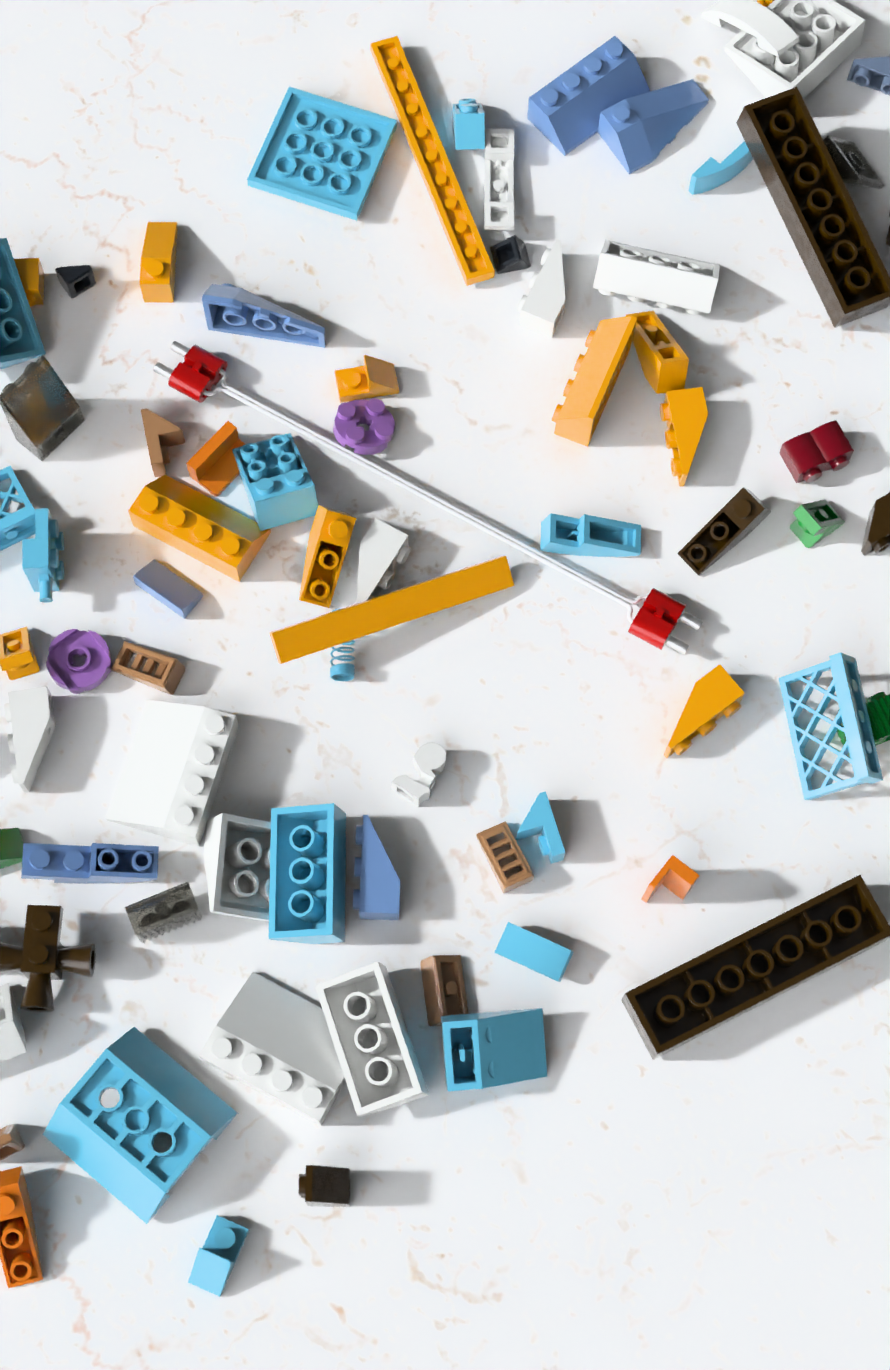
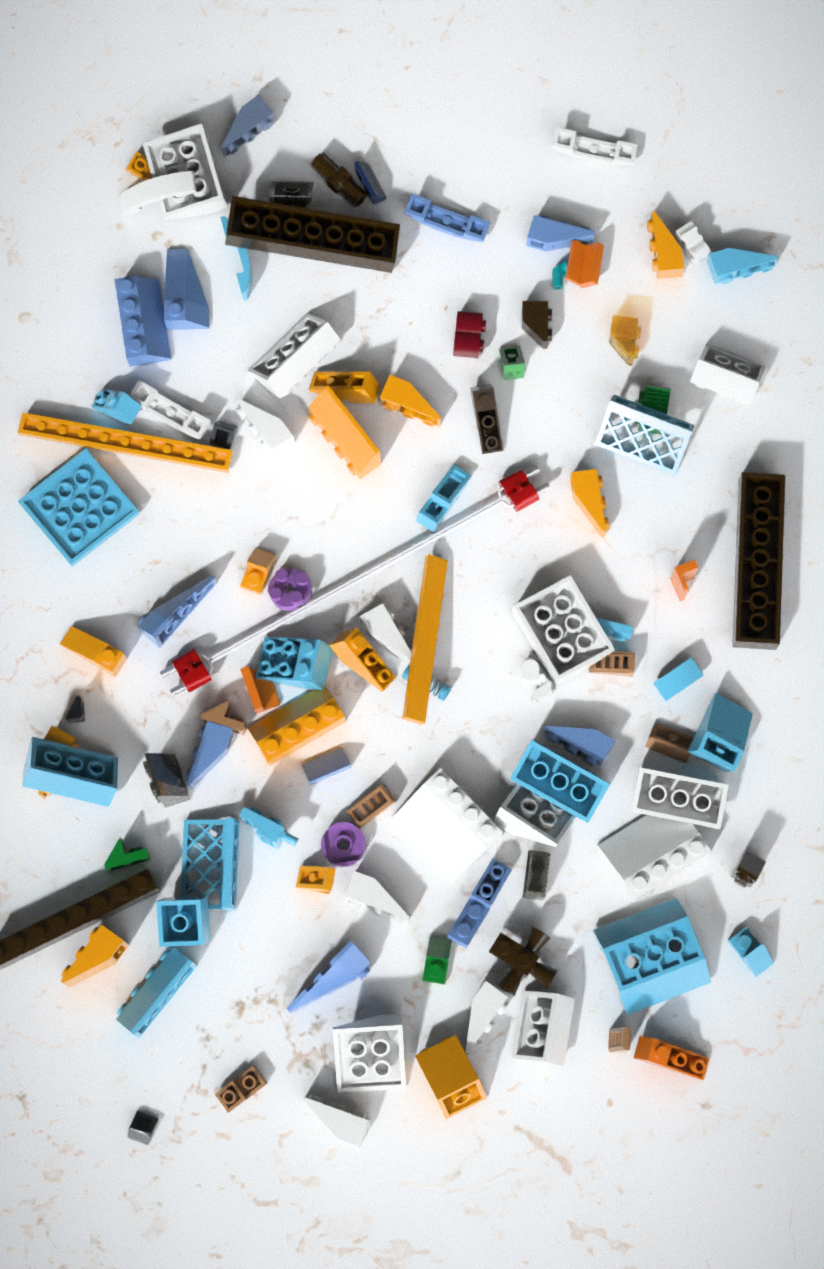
camera: 55 degrees left, 5 degrees up
(112, 447) = (212, 749): none -> medium blue slope
(505, 767) = (562, 630): none -> white slope

